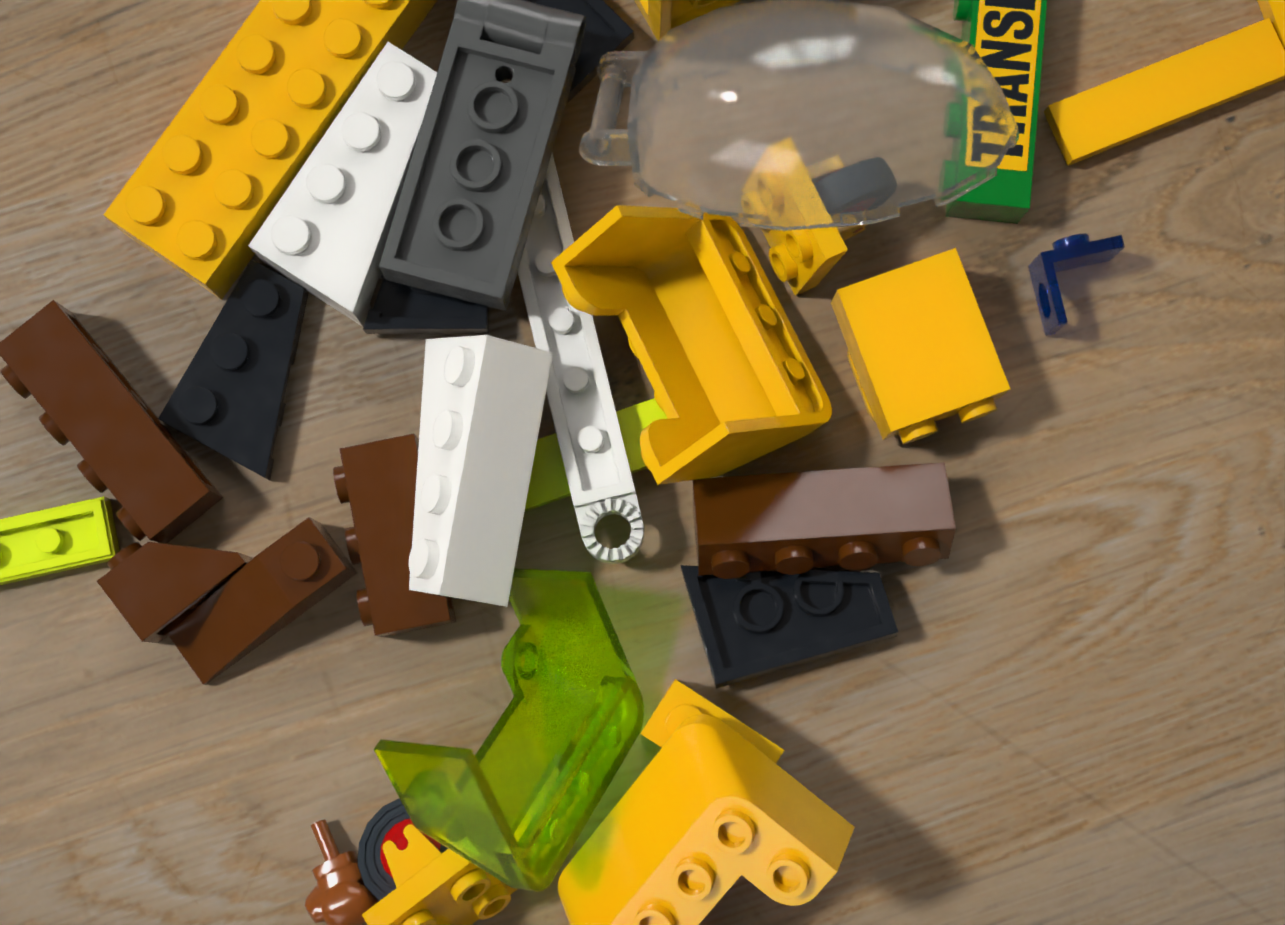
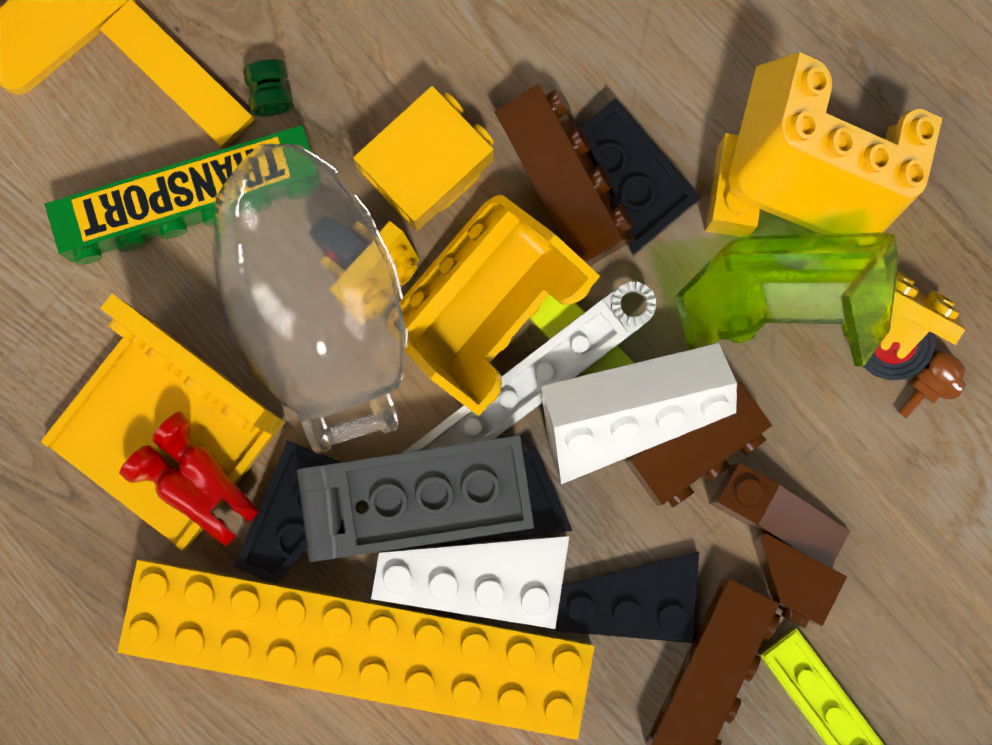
camera: 115 degrees left, 0 degrees up
(1067, 254) = (339, 102): clear blue bracket -> none
(1101, 193) = (268, 88): none -> dark green wheel

